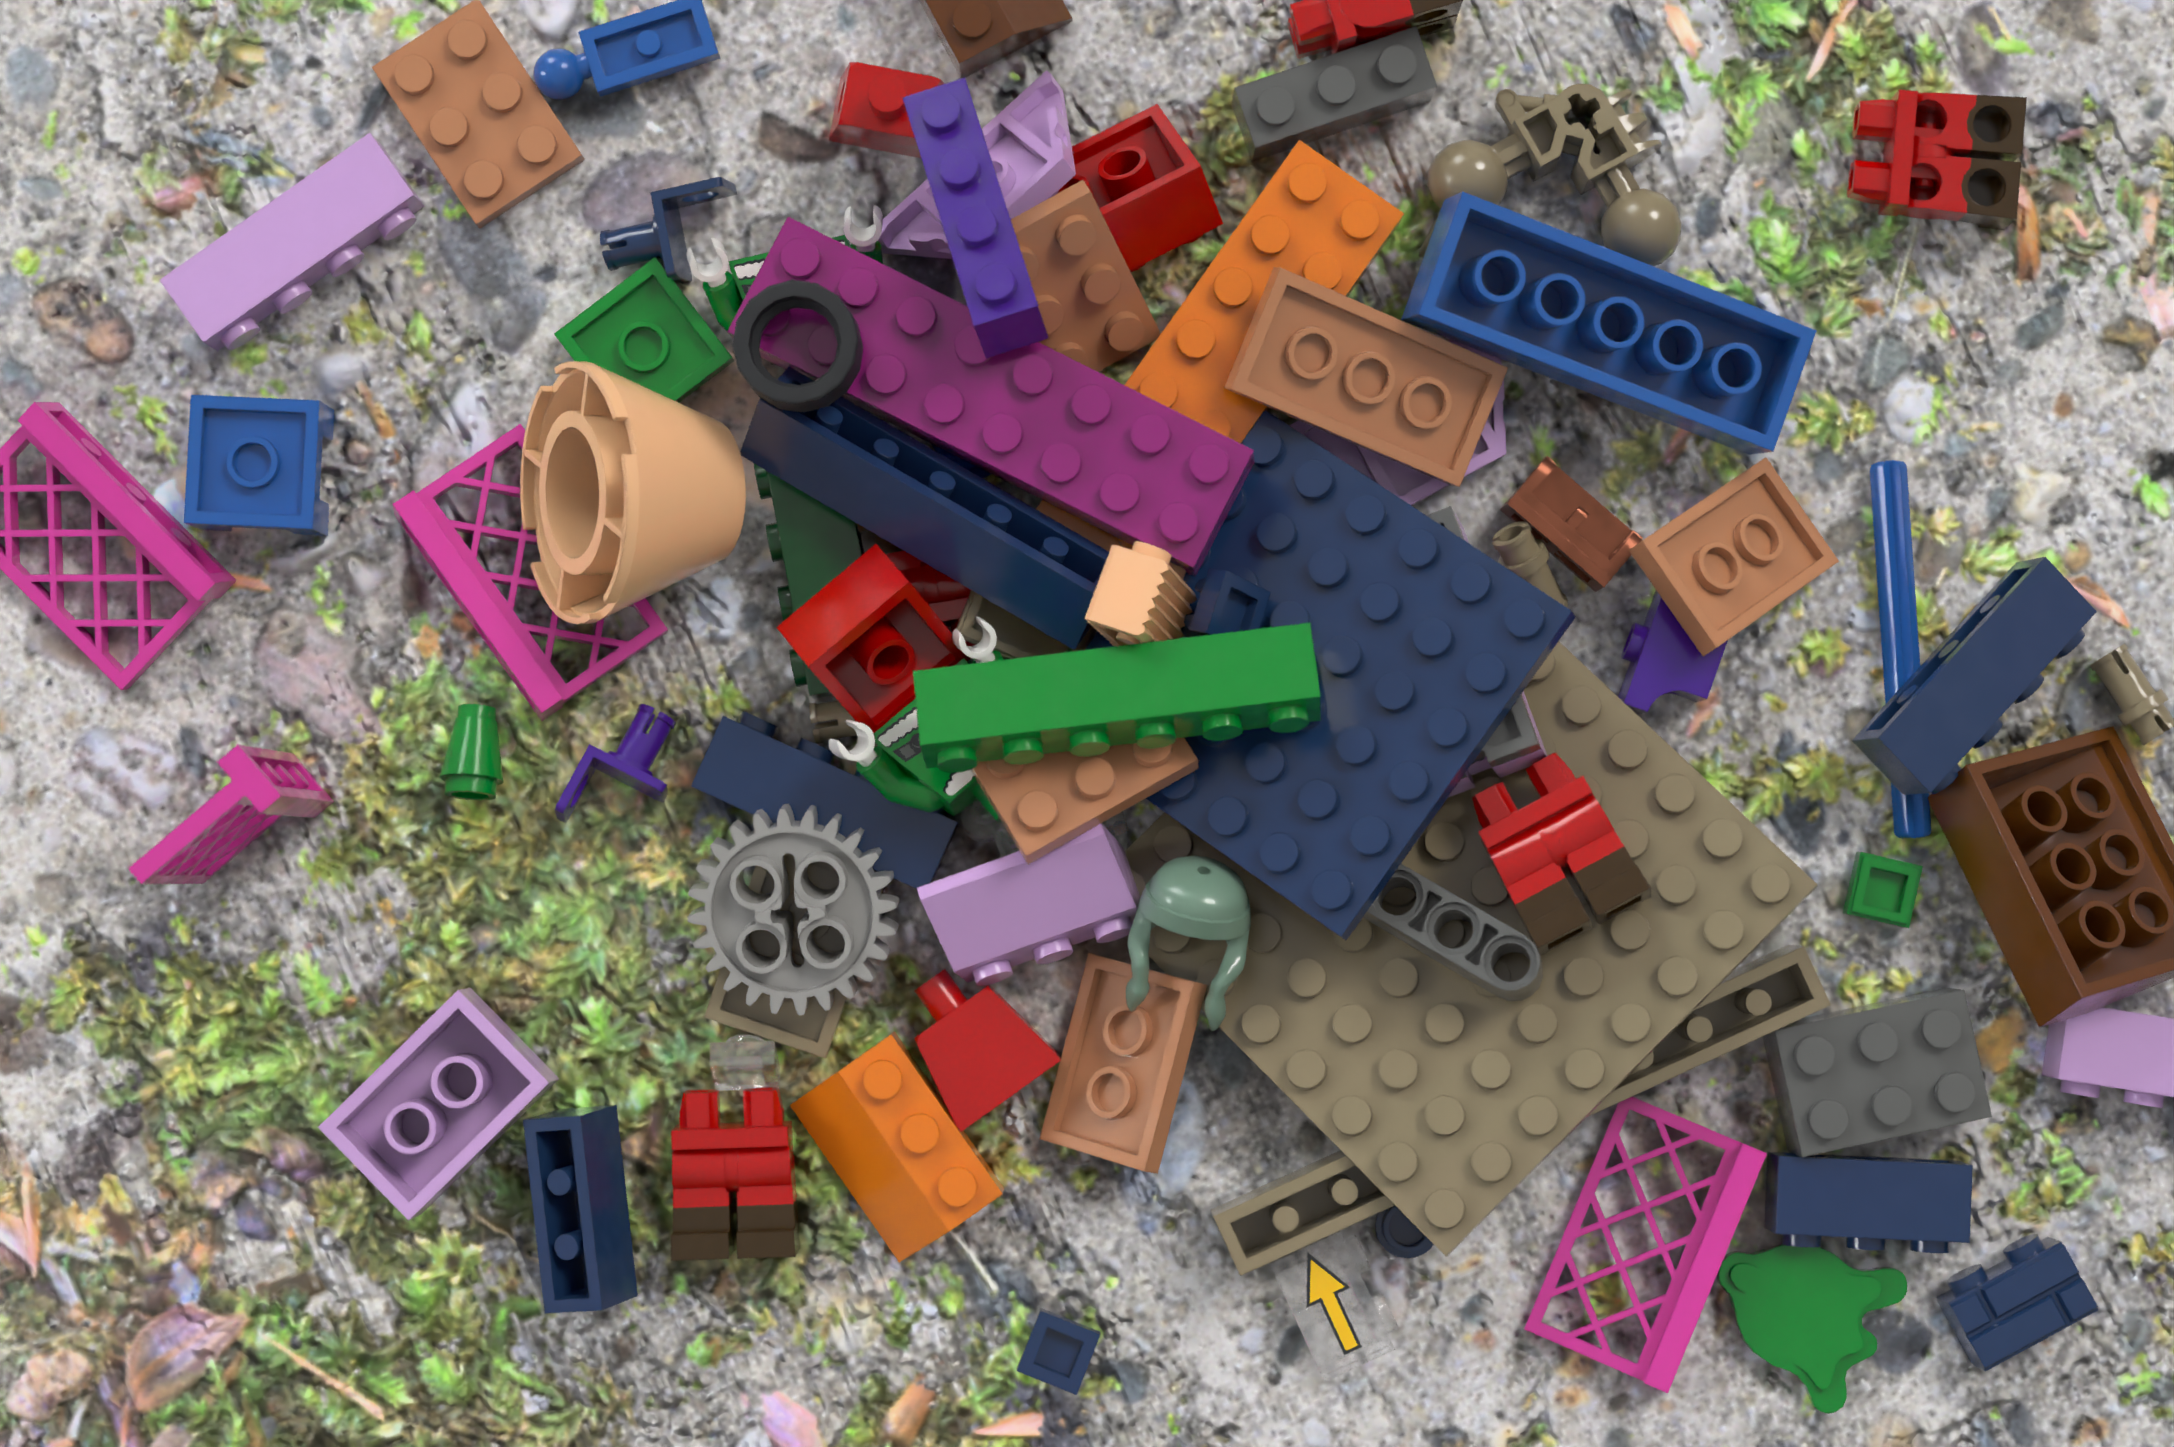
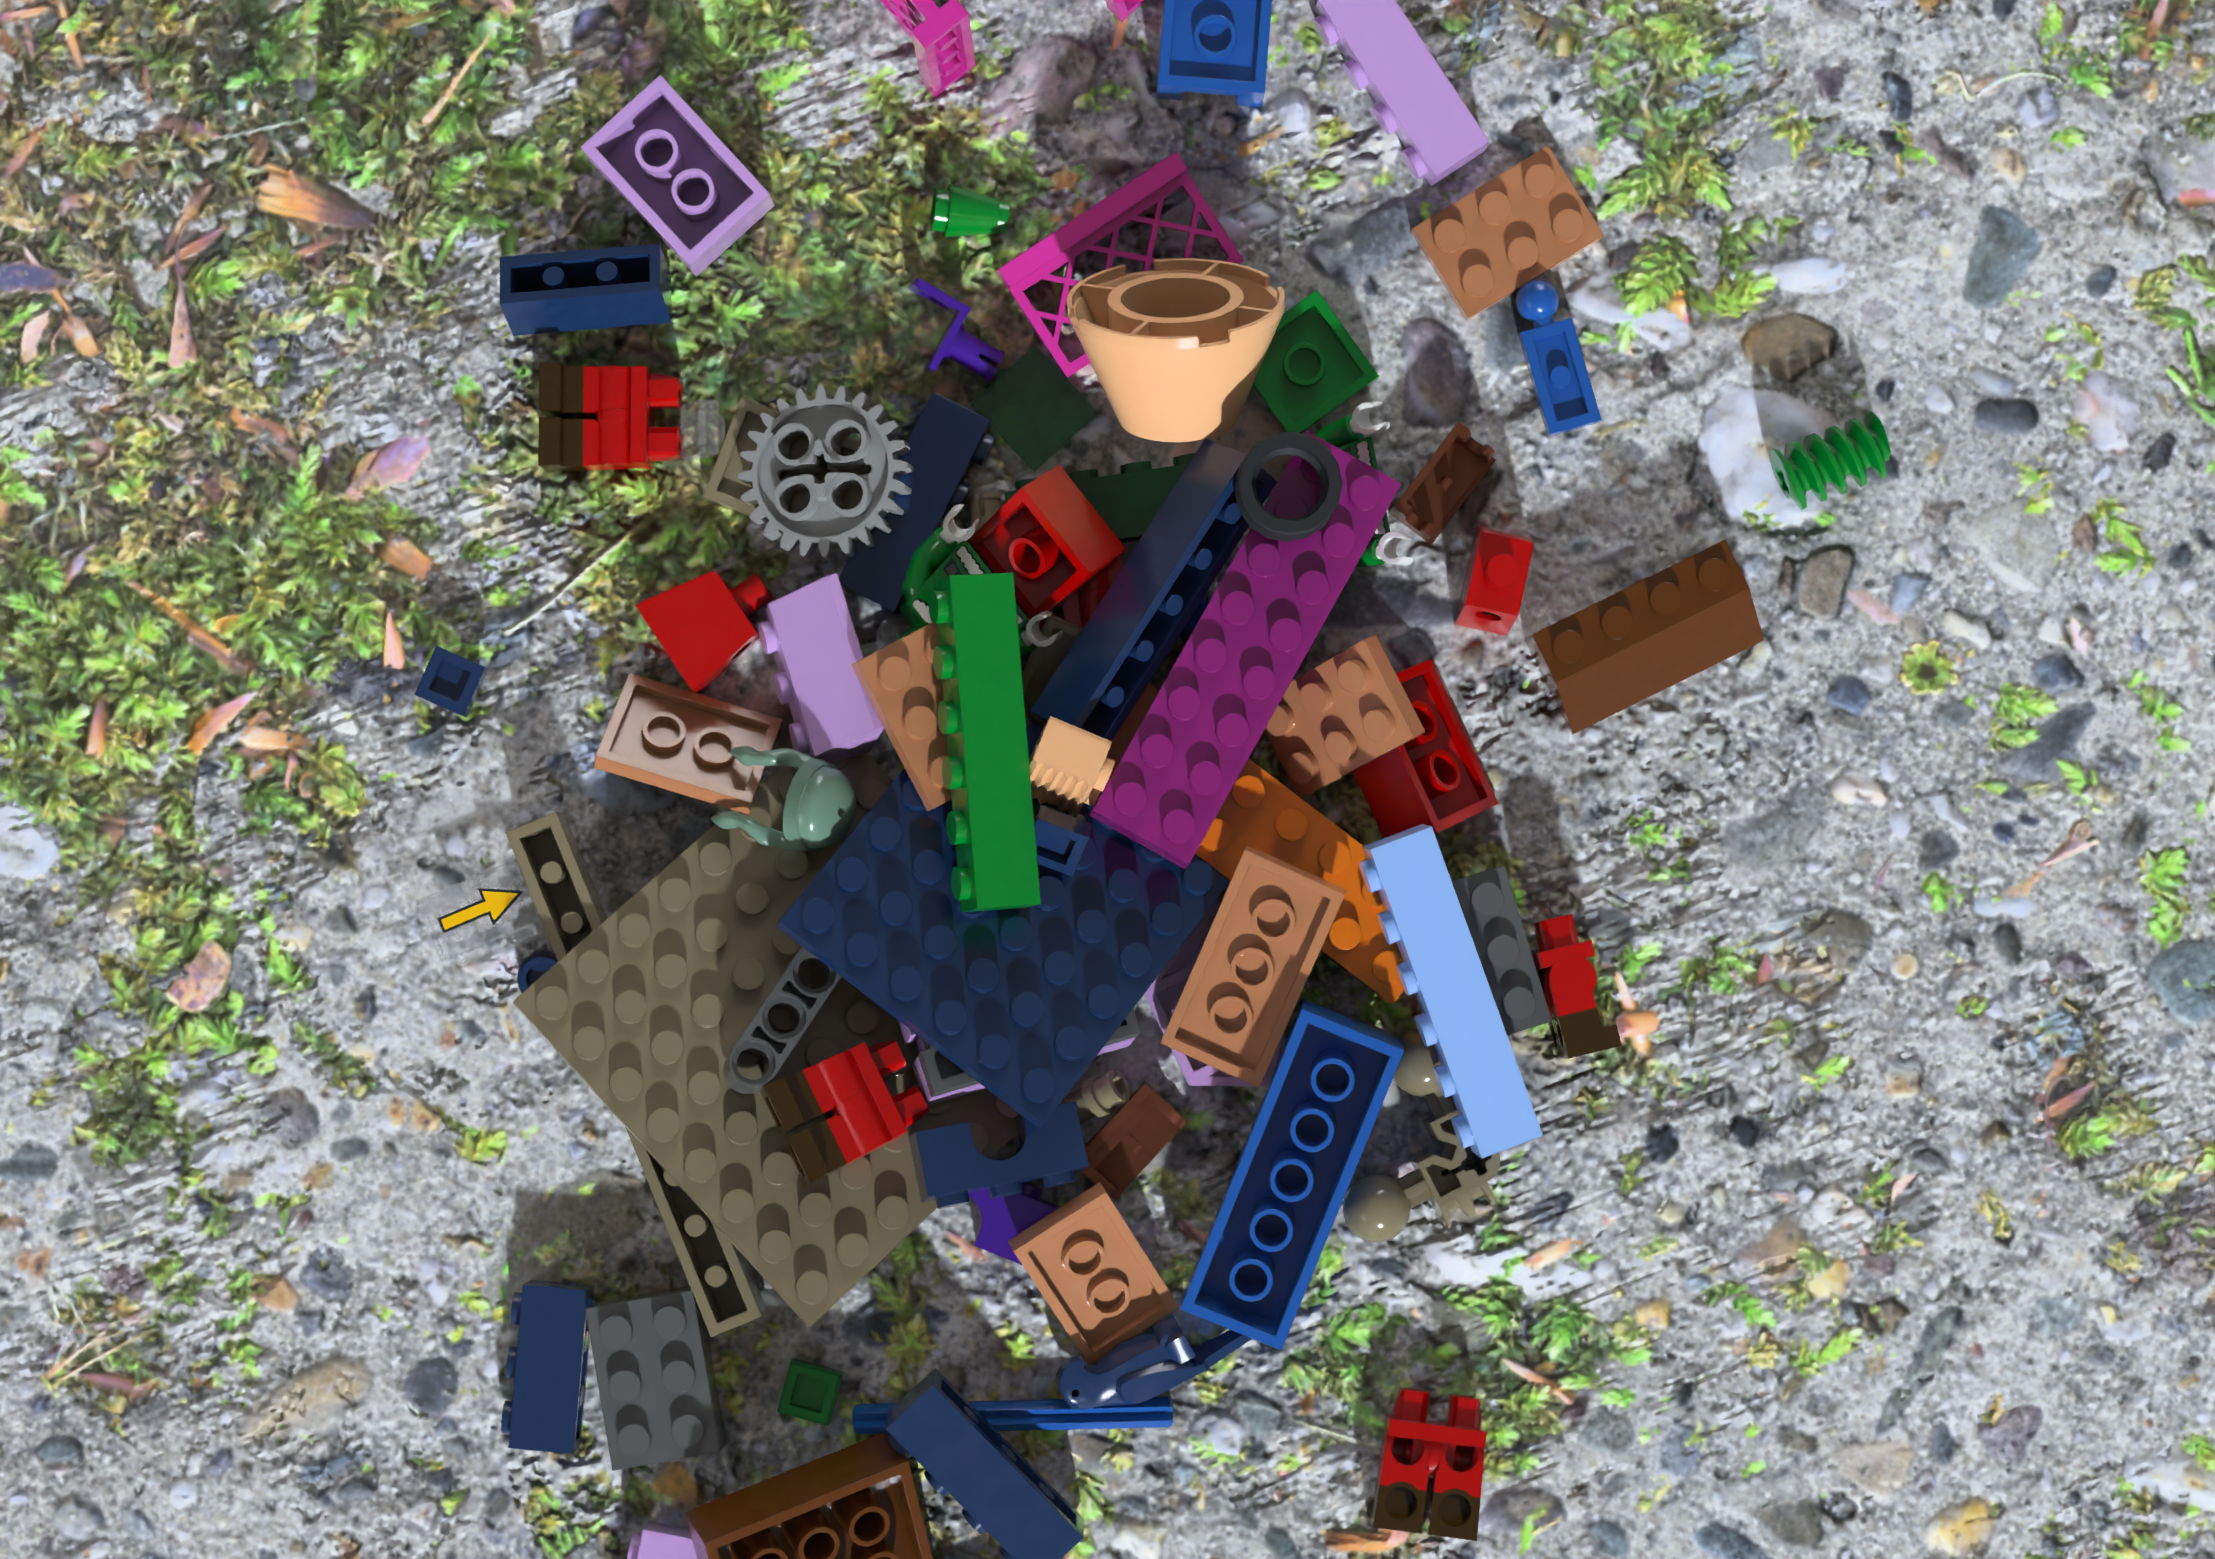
camera: 95 degrees right, 0 degrees up
(664, 234) = (1398, 385): dark blue bracket -> none
(705, 667) = (1034, 408): none -> clear green piece
(779, 176) = (1443, 484): none -> copper hinge
(897, 1147) = (627, 555): orange slope -> none
(975, 218) = (1391, 638): dark purple brick -> none
(1030, 158) = (1434, 659): lavender wing -> none
(1387, 142) = (1451, 991): none -> light blue brick
(1619, 723) = (952, 1166): none -> dark blue arch
(1698, 1262) = (504, 1221): dark pink fence -> none
(1807, 1313) = (457, 1312): green tile -> none
(1839, 497) = (1142, 1367): none -> dark blue animal
(2015, 1301) = (459, 1487): dark blue brick -> none

